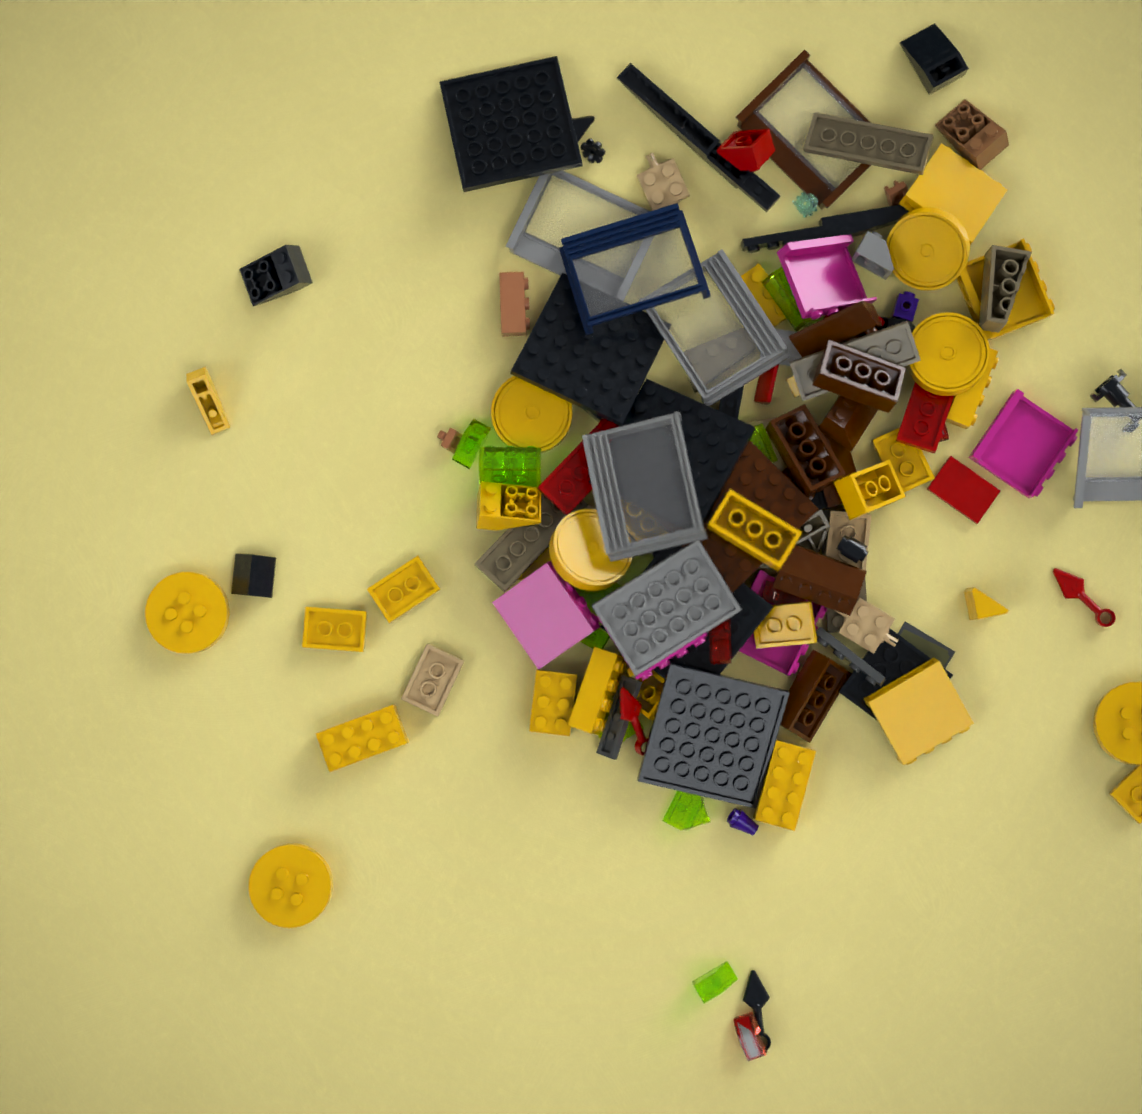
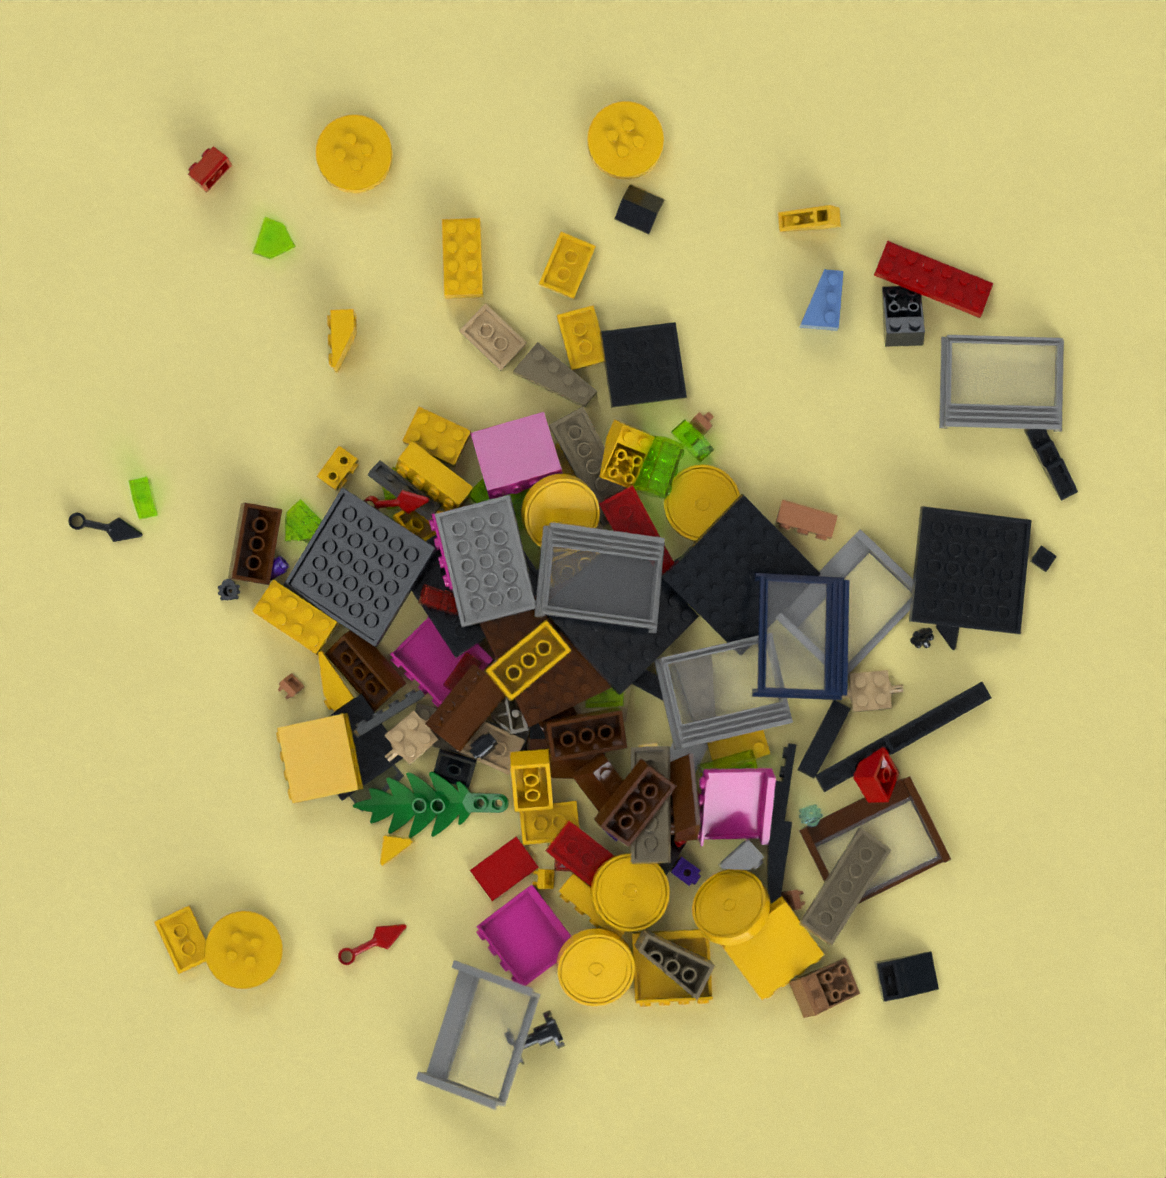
camera: 105 degrees right, 0 degrees up
(228, 256) = (933, 279): none -> red plate
(288, 356) = (825, 304): none -> medium blue wedge
(311, 156) = (1001, 382): none -> piece
(354, 1030) = (209, 168): none -> red slope
(373, 82) = (1051, 462): none -> black slope
(406, 939) = (272, 239): none -> clear neon green slope
(411, 518) = (643, 364): none -> black plate
(451, 606) = (550, 373): none -> dark tan wedge
(474, 58) = (1043, 558): none -> black plate
(479, 834) = (343, 331): none -> yellow slope
(619, 792) = (338, 468): none -> yellow brick
(724, 851) = (255, 543): none -> reddish brown slope
(727, 214) = (823, 739): none -> black slope
(747, 1032) = (90, 511): slope -> none
(766, 386) = (656, 721): red slope -> none
(782, 865) = (224, 590): none -> black animal
(787, 626) = (434, 665): yellow plate -> none
(843, 720) = (334, 688): none -> yellow slope
(854, 765) = (291, 686): none -> nougat tile
(881, 572) = (455, 767): none -> black slope
(924, 588) = (427, 803): none -> green plant
(959, 445) = (545, 878): none -> yellow tile
(1032, 364) = (595, 967): none -> yellow brick

